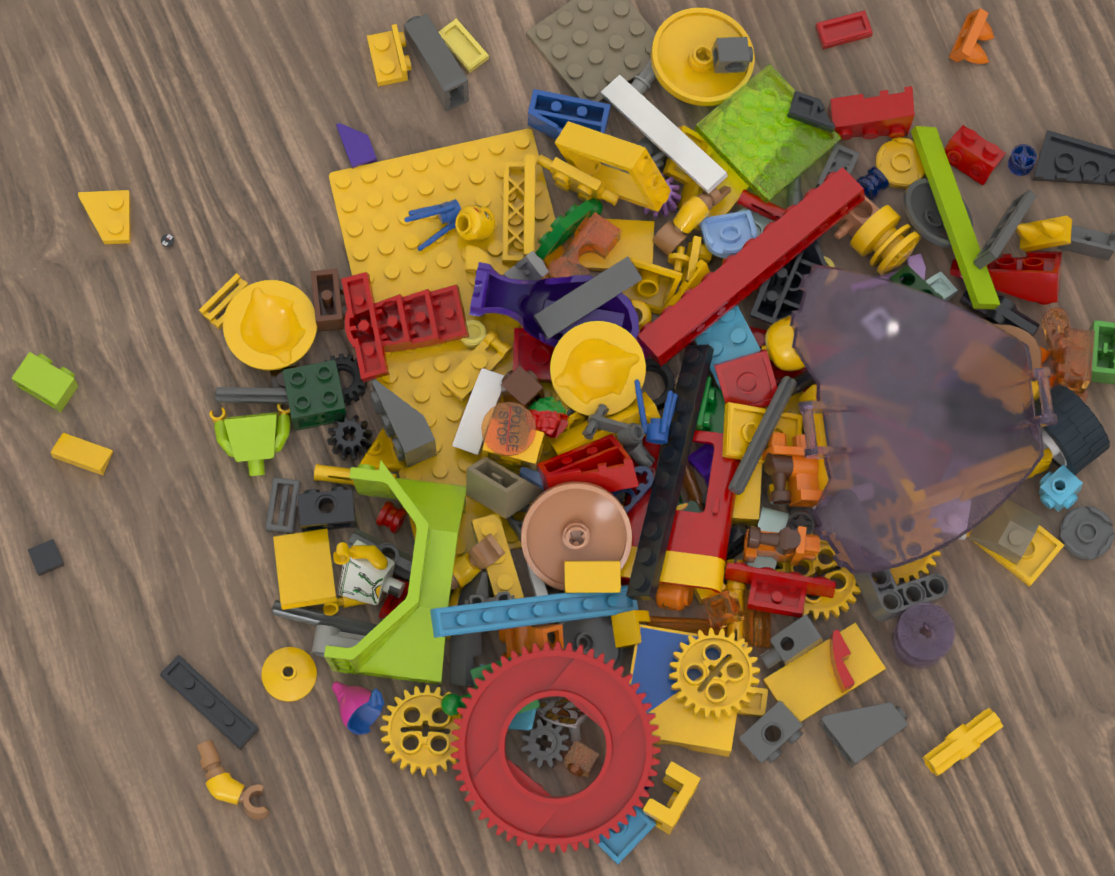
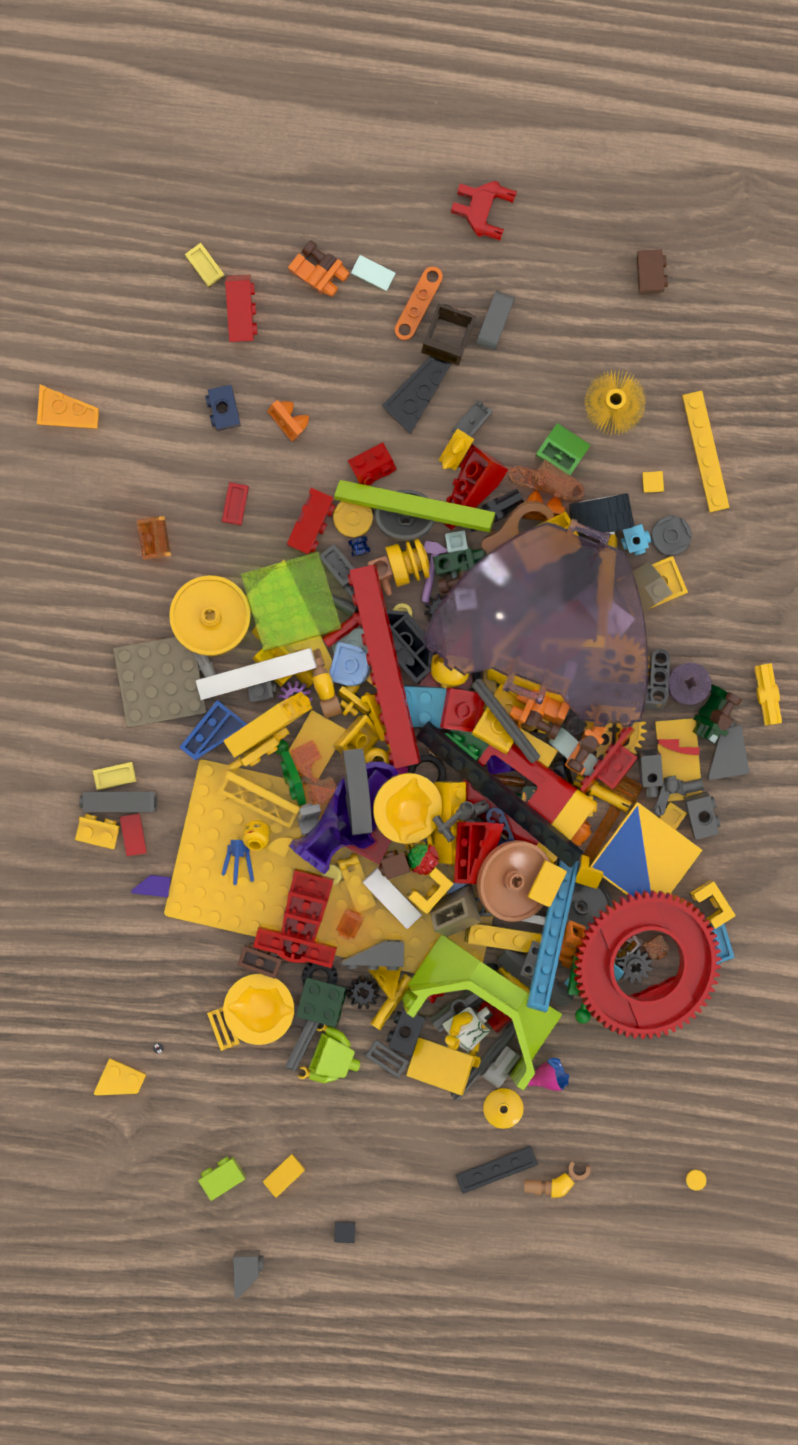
camera: 65 degrees left, 15 degrees up
(405, 96) = (133, 834): none -> red tile
(423, 756) = (603, 1047): yellow gear -> none
(425, 376) = (349, 924): none -> clear orange slope
(477, 558) = (497, 954): medium nougat piece -> none
(508, 429) = (421, 890): clear orange piece -> none
(658, 429) = (470, 790): blue plant -> none
(718, 605) = (607, 806): clear orange plate -> none
(731, 55) = (222, 597): dark grey brick -> none
(733, 689) = (631, 843): yellow gear -> none
(790, 679) = (673, 786): none -> dark grey pin
(809, 111) = (290, 564): black tile -> none
(903, 686) = (714, 716): none -> dark green hips
(1004, 229) = (442, 478): dark grey tile -> none
(1026, 155) = (393, 430): clear blue wheel -> none

